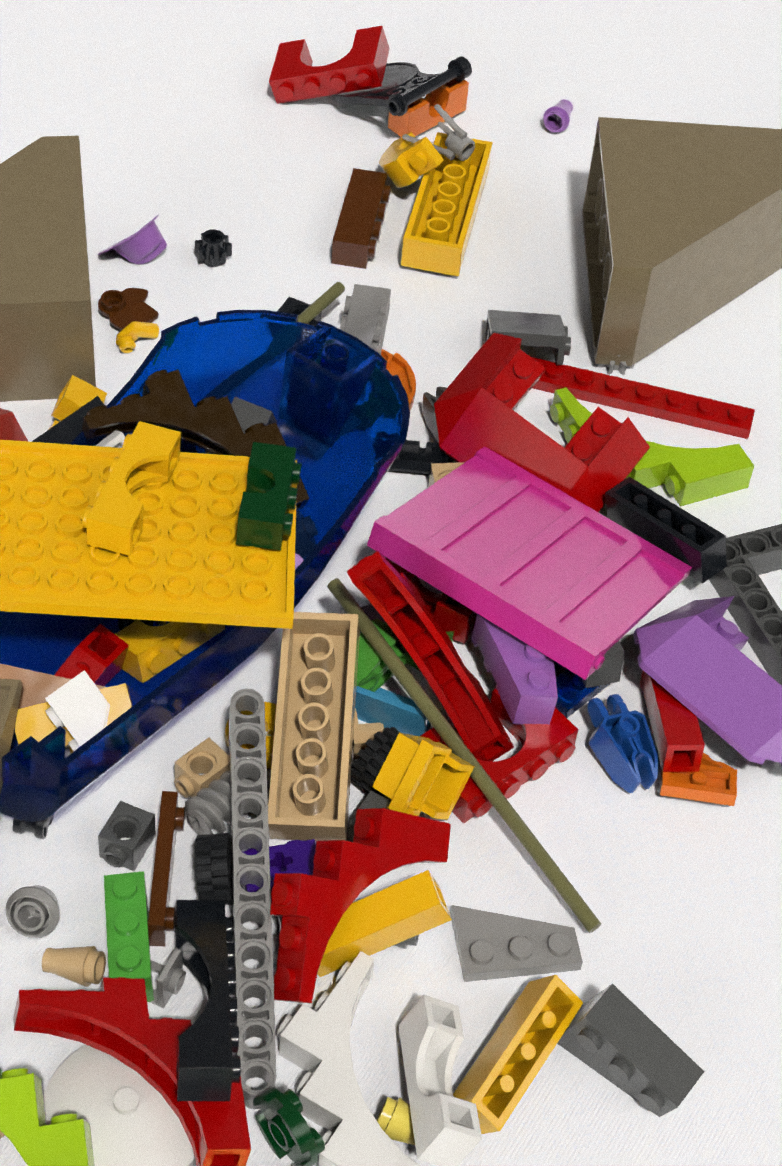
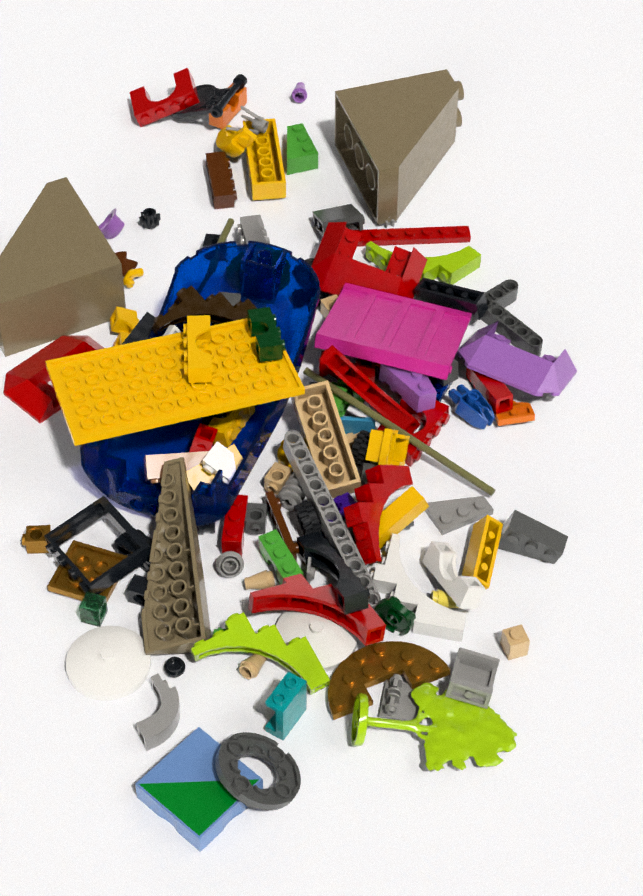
camera: 15 degrees left, 0 degrees up
(67, 852) = (234, 526): none -> red arch
(514, 206) = (300, 150): none -> bright green wedge

